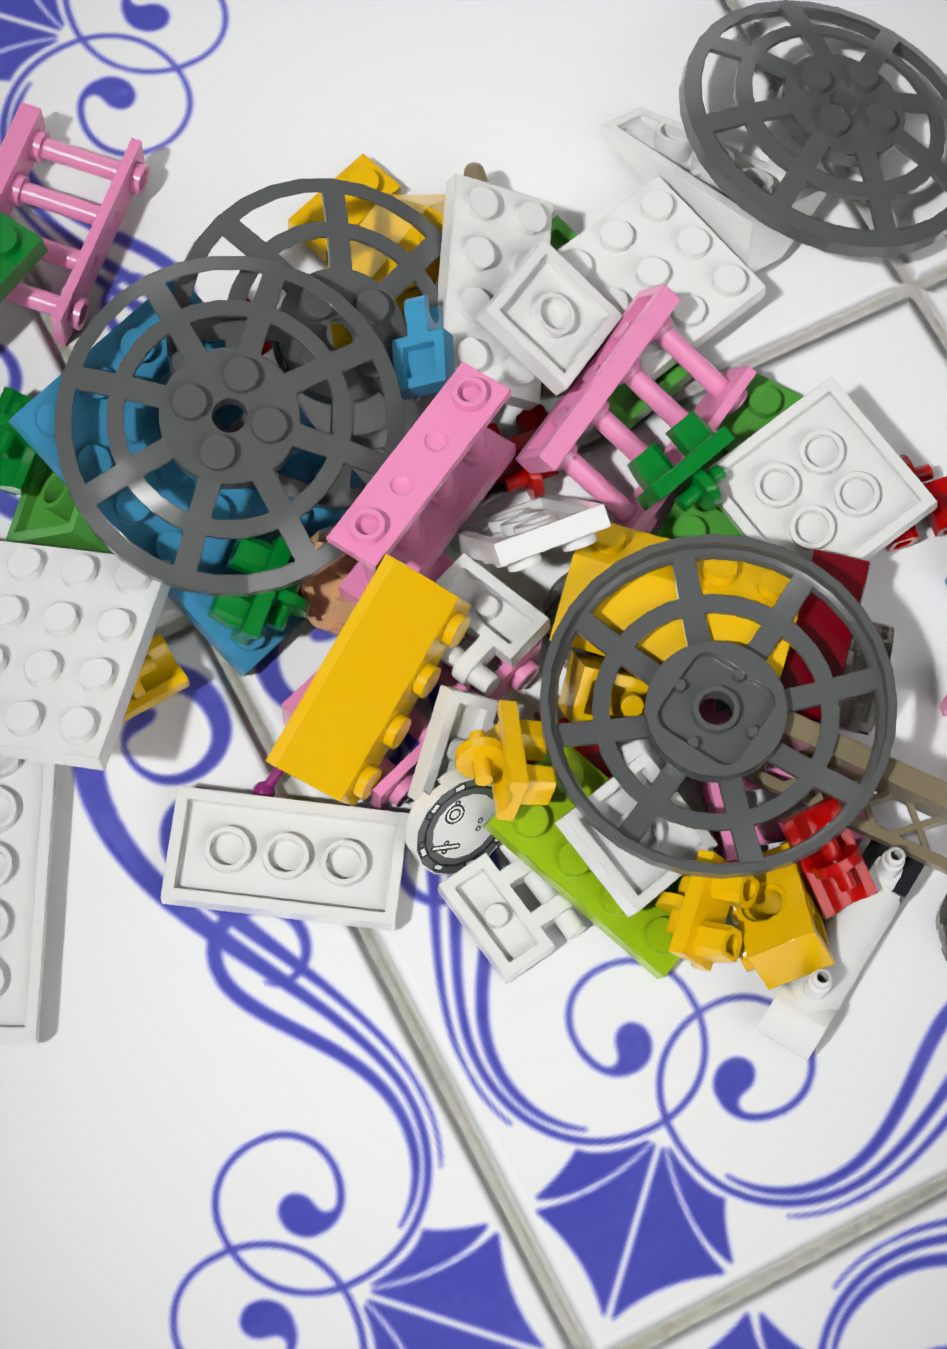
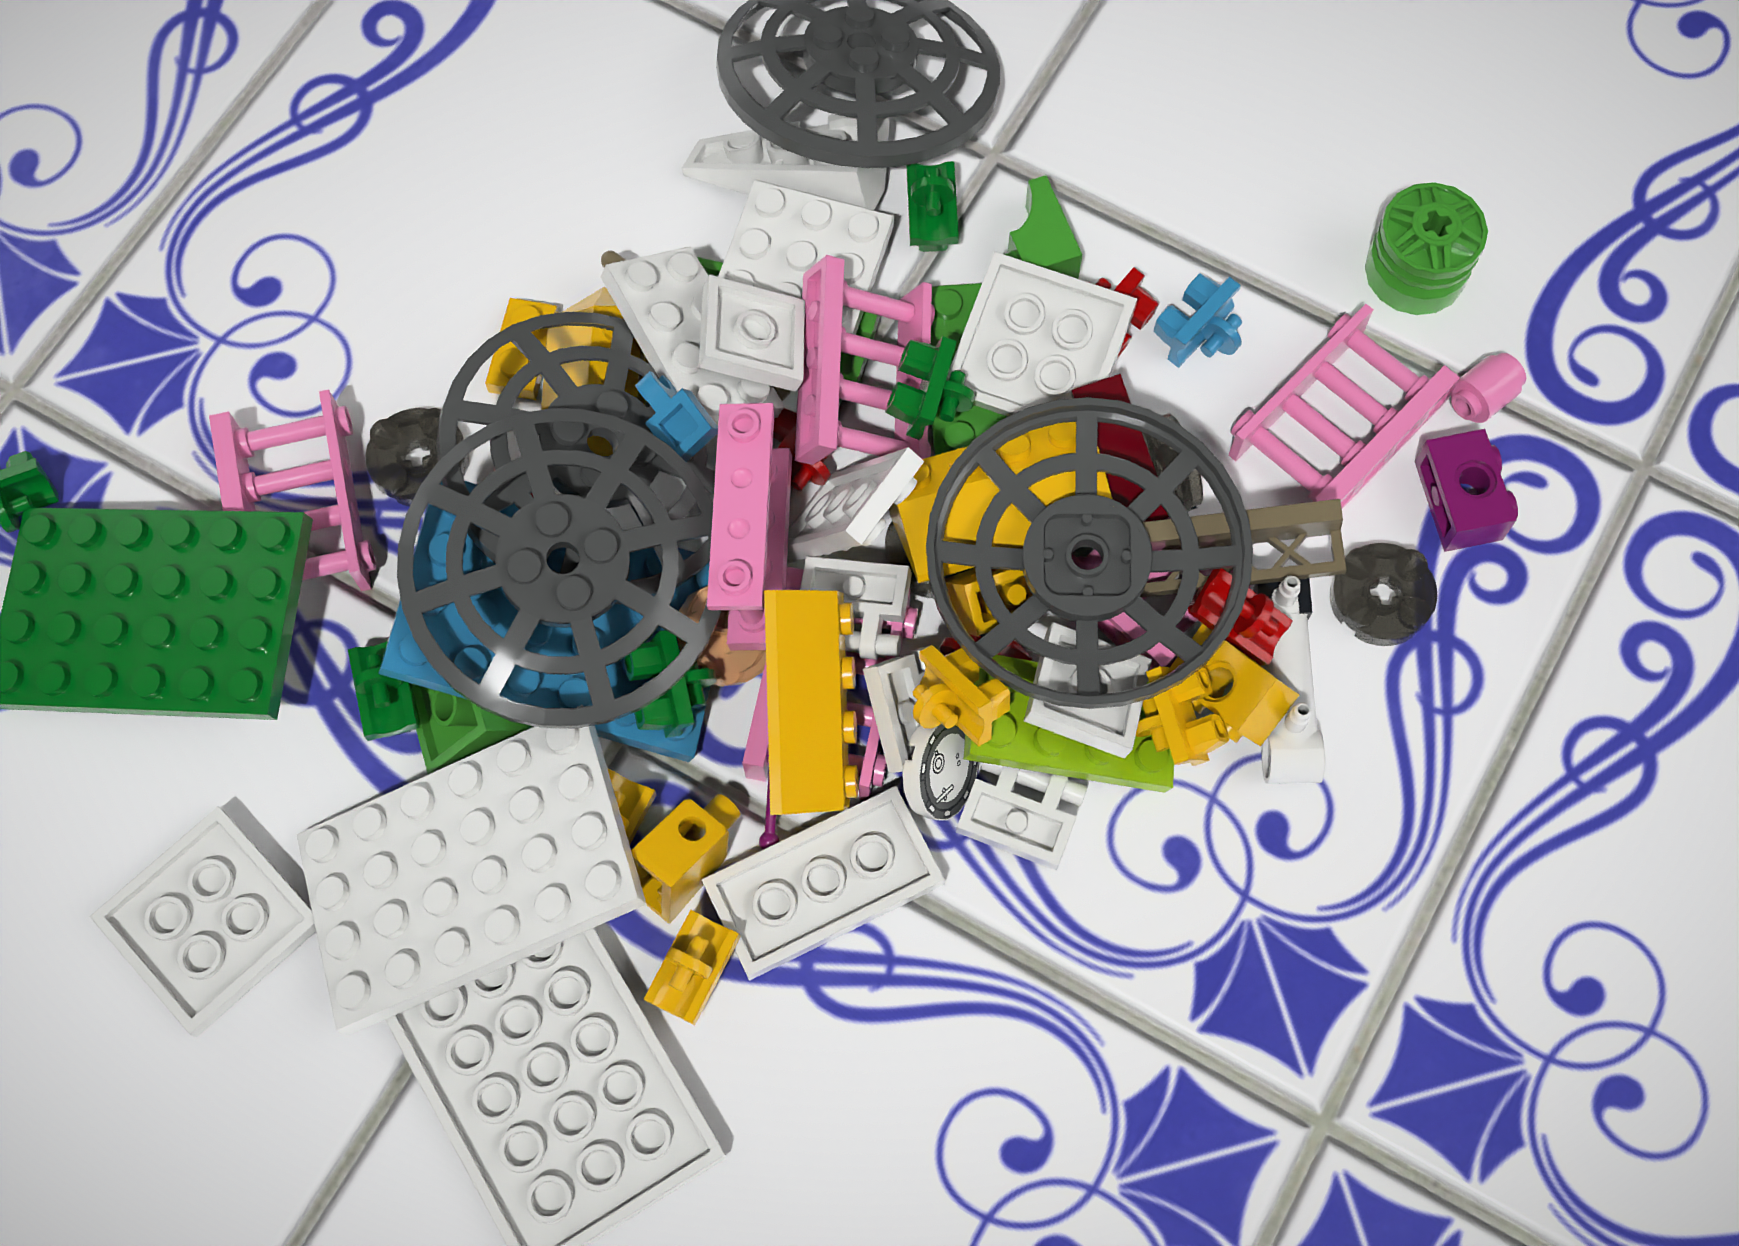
camera: 25 degrees left, 0 degrees up
(116, 857) = (692, 967): none -> yellow hips
(170, 224) = (395, 439): none -> clear smoke plate
(172, 750) = (682, 853): none -> yellow torso
(813, 299) = (932, 206): none -> green hips
(898, 395) = (1045, 235): none -> bright green arch

